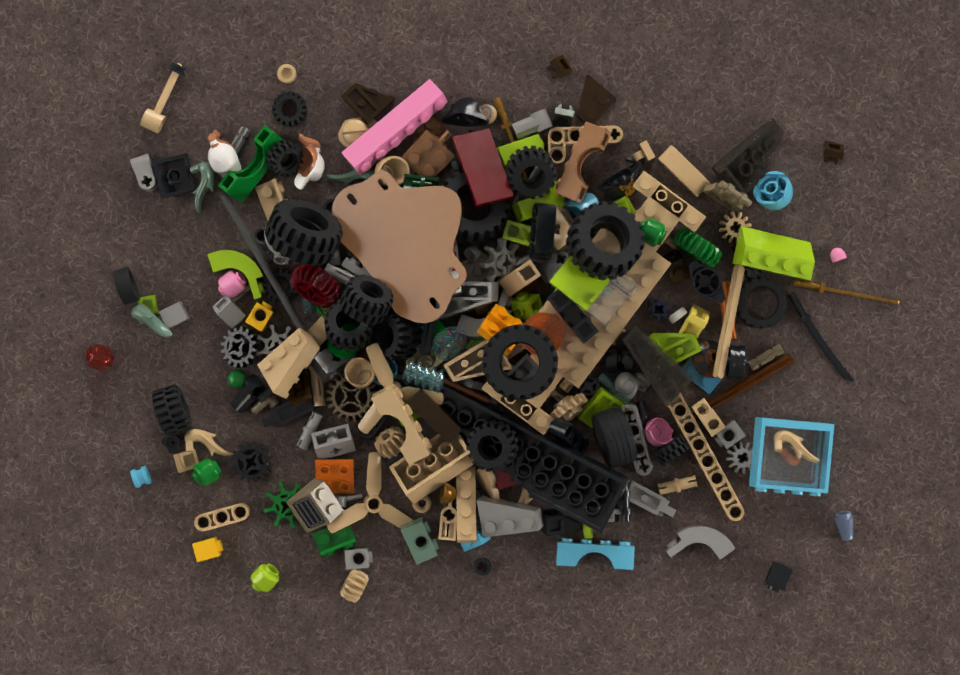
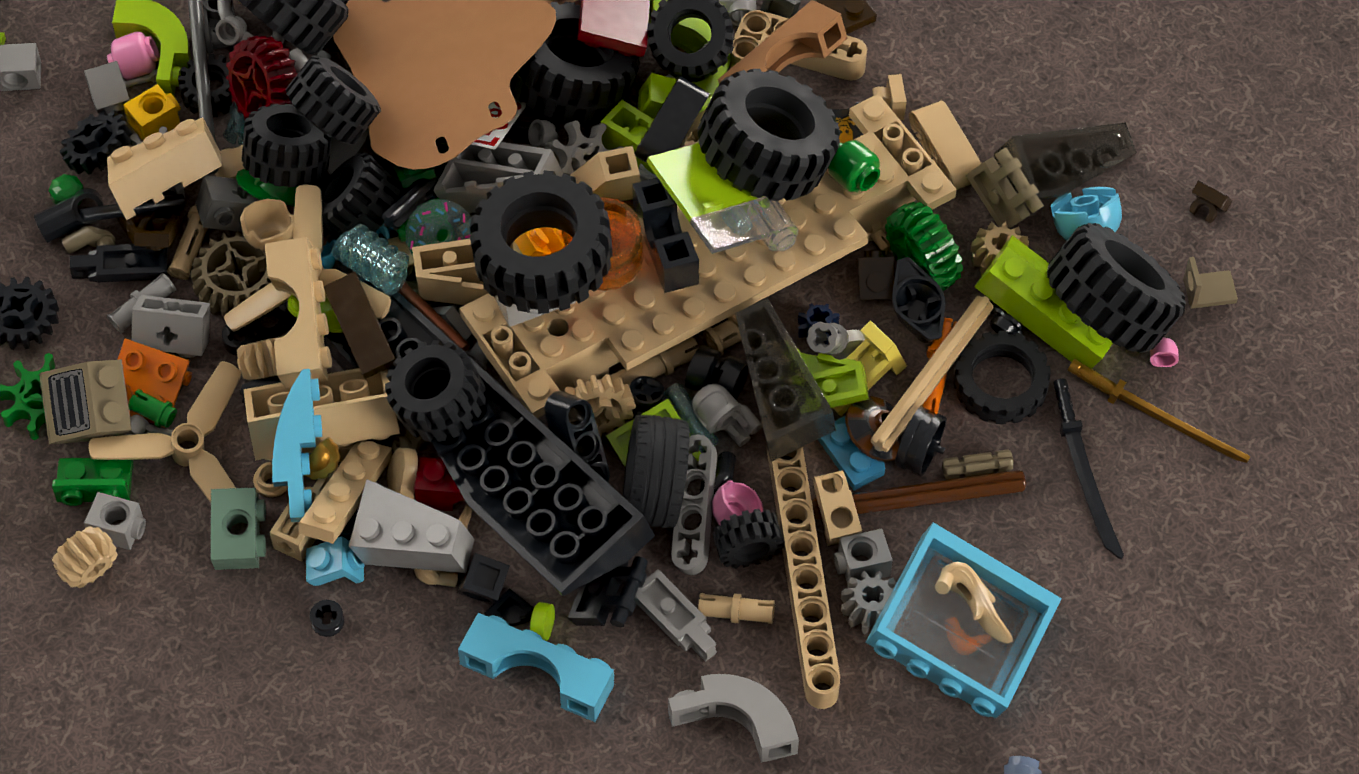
camera: 20 degrees right, 30 degrees down
(348, 491) = (153, 409): none -> green pin
(434, 498) = (296, 430): none -> medium azure slope
(667, 321) = (818, 335): none -> light grey bush
(823, 247) = (1116, 287): none -> black tyre
(849, 206) = (1208, 288): none -> dark tan bracket

